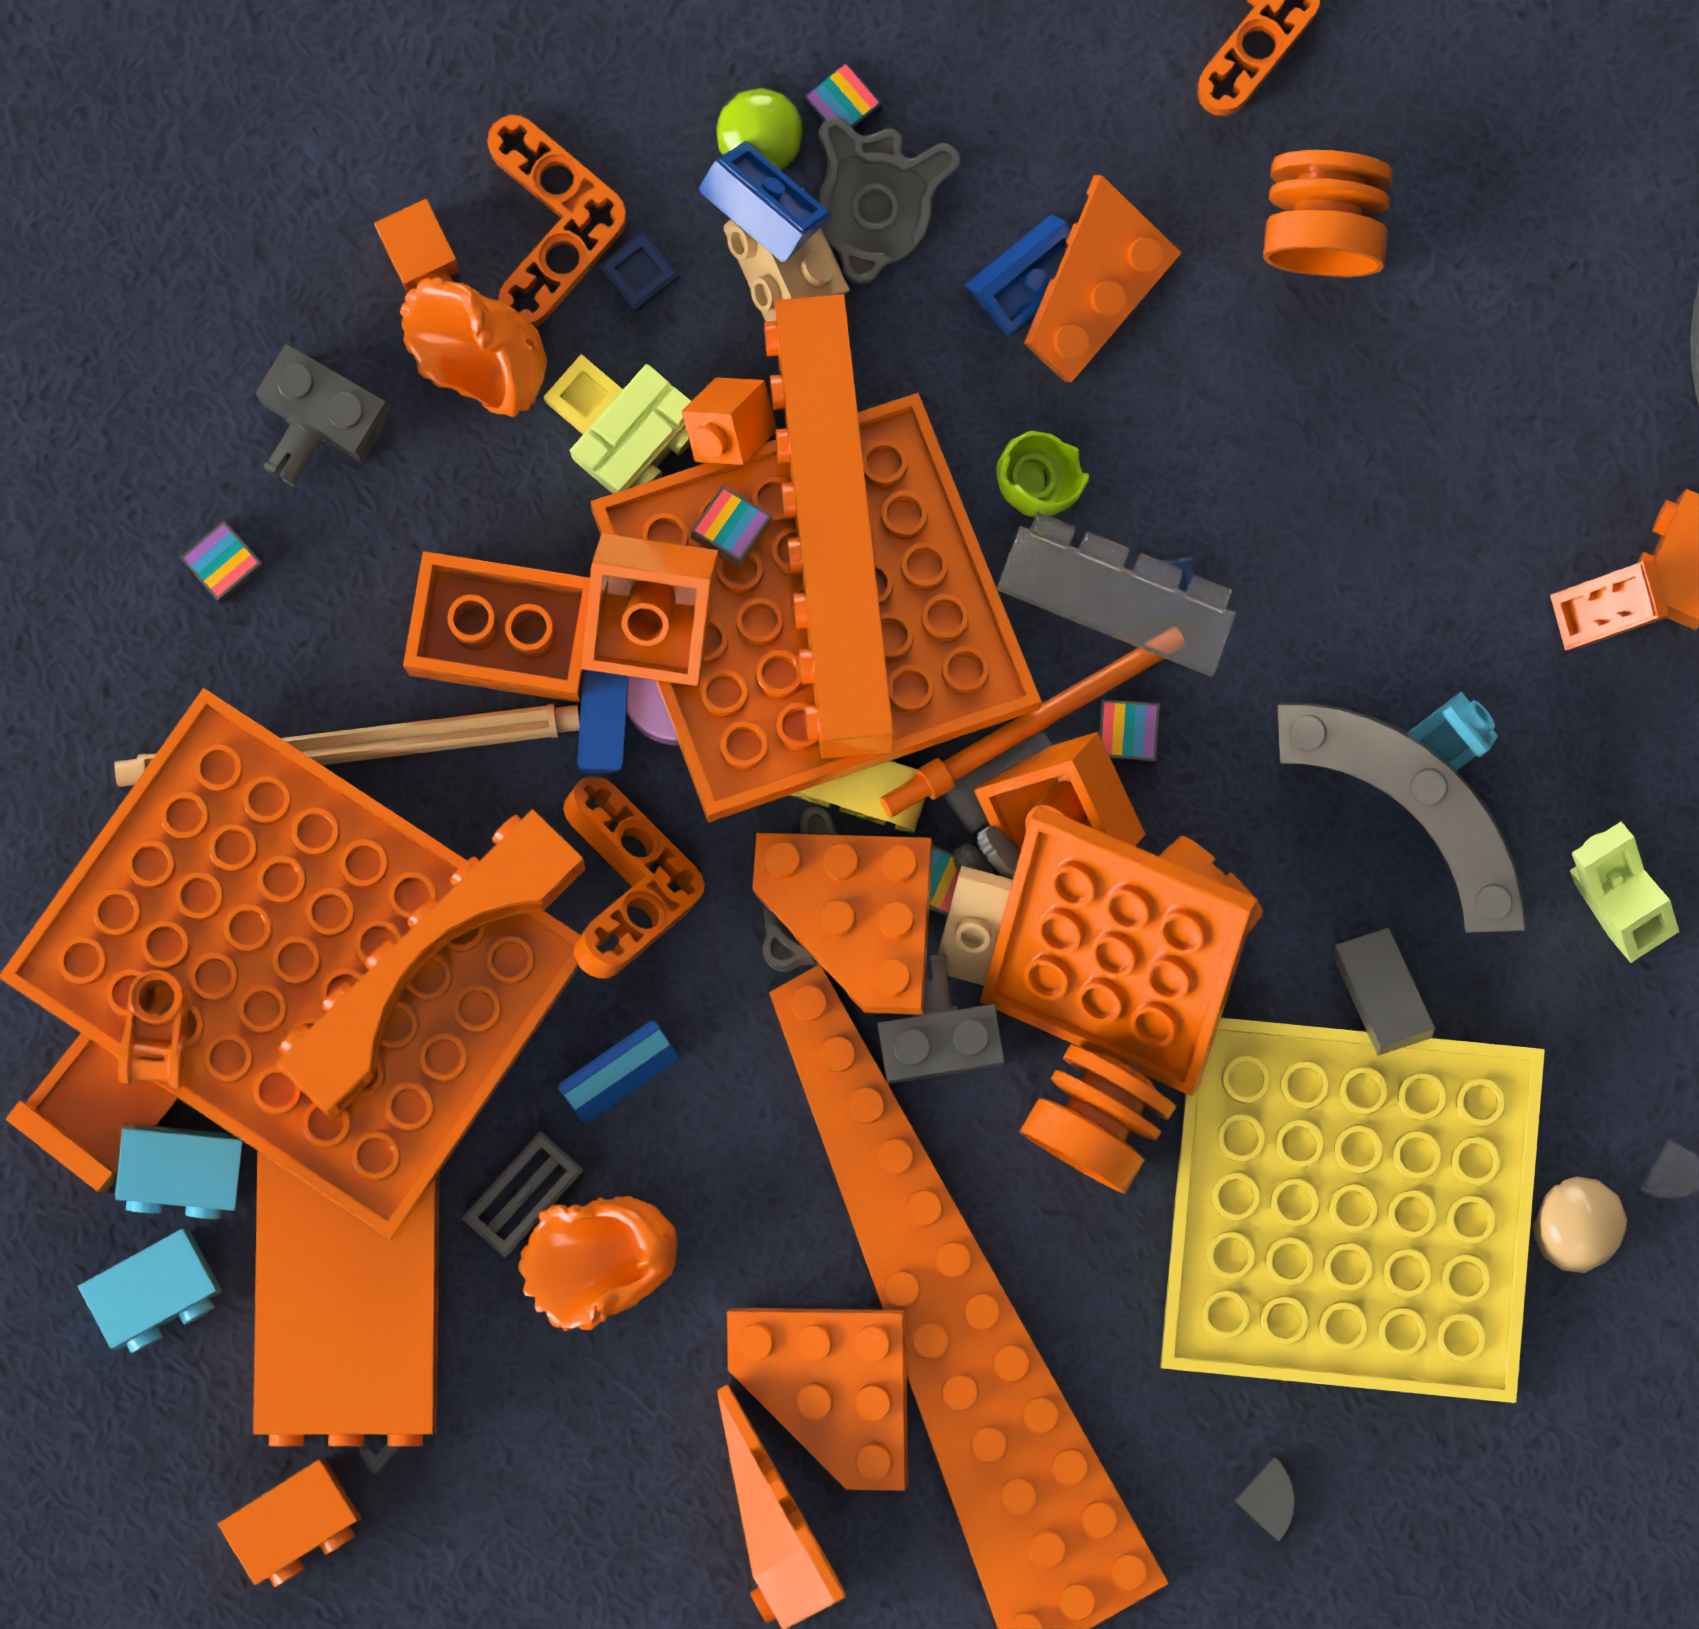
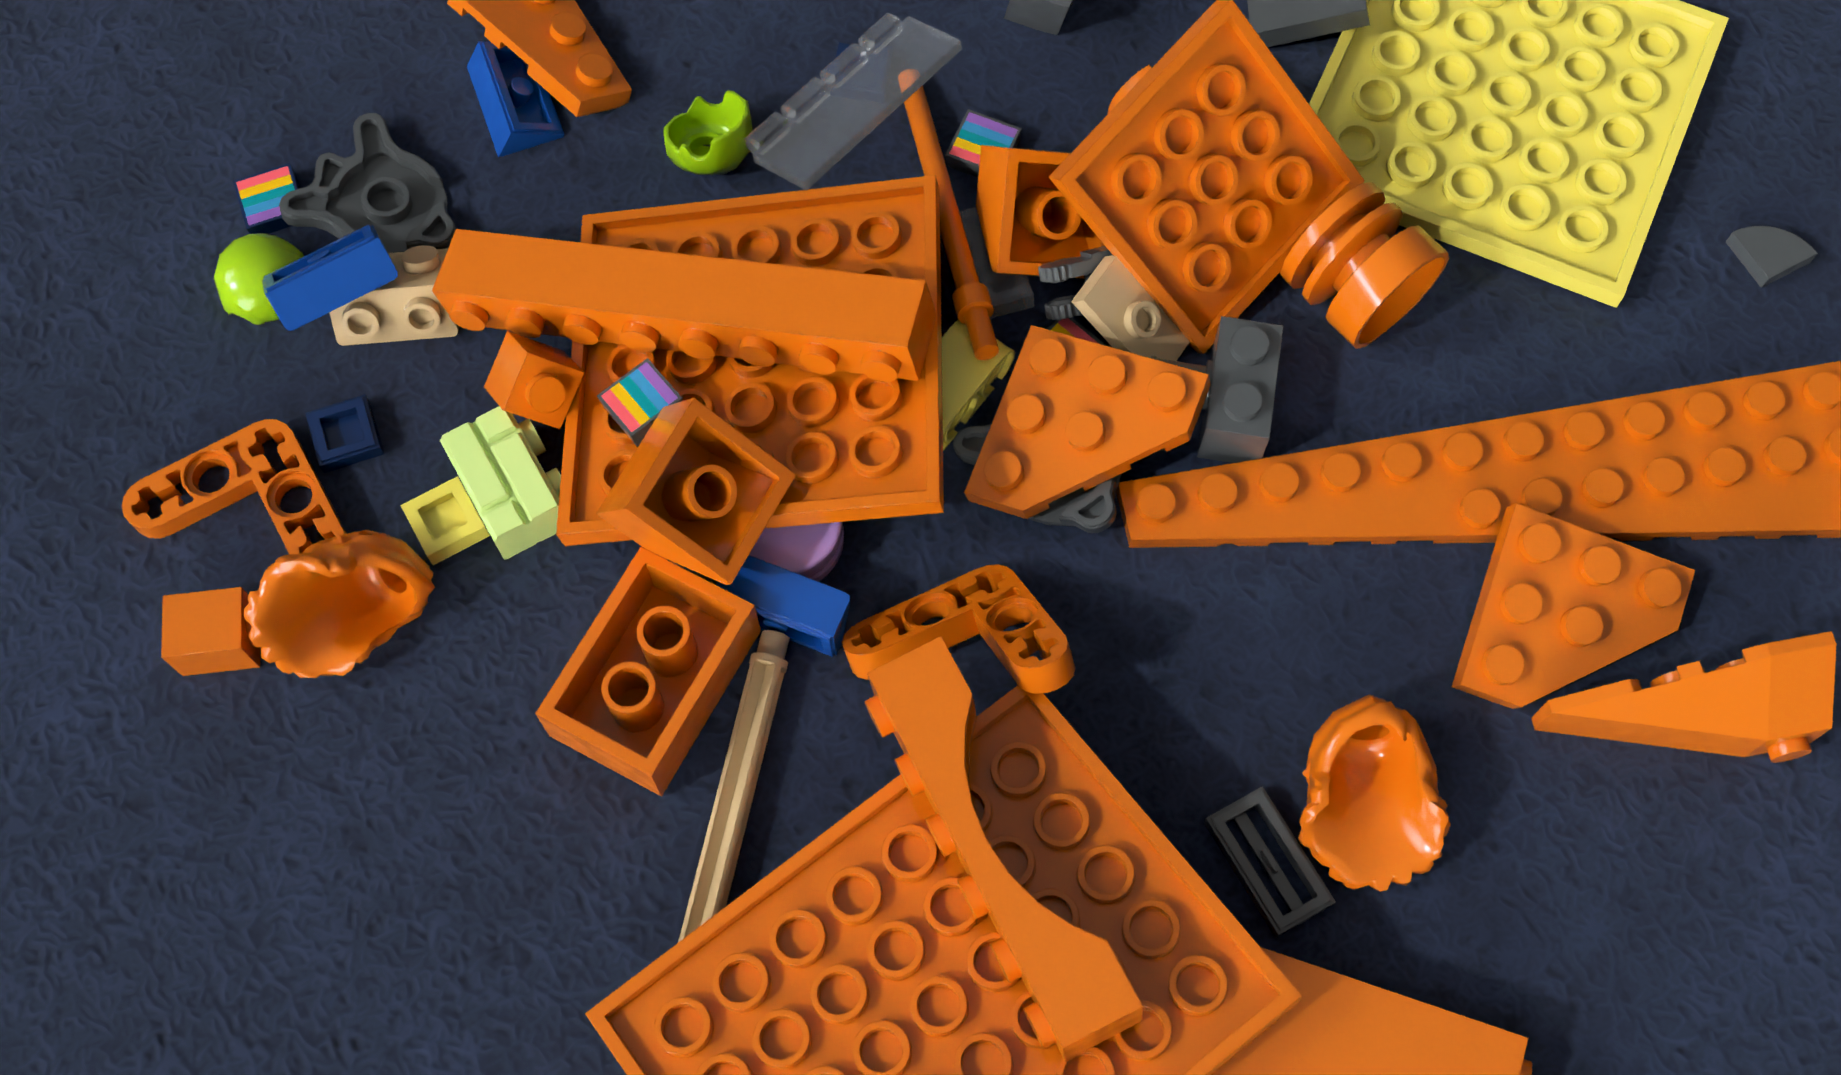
camera: 70 degrees left, 15 degrees down
(221, 561) = (452, 958): tile -> none
(319, 410) = (333, 788): dark grey brick -> none
(618, 1072) = (1164, 716): blue slope -> none

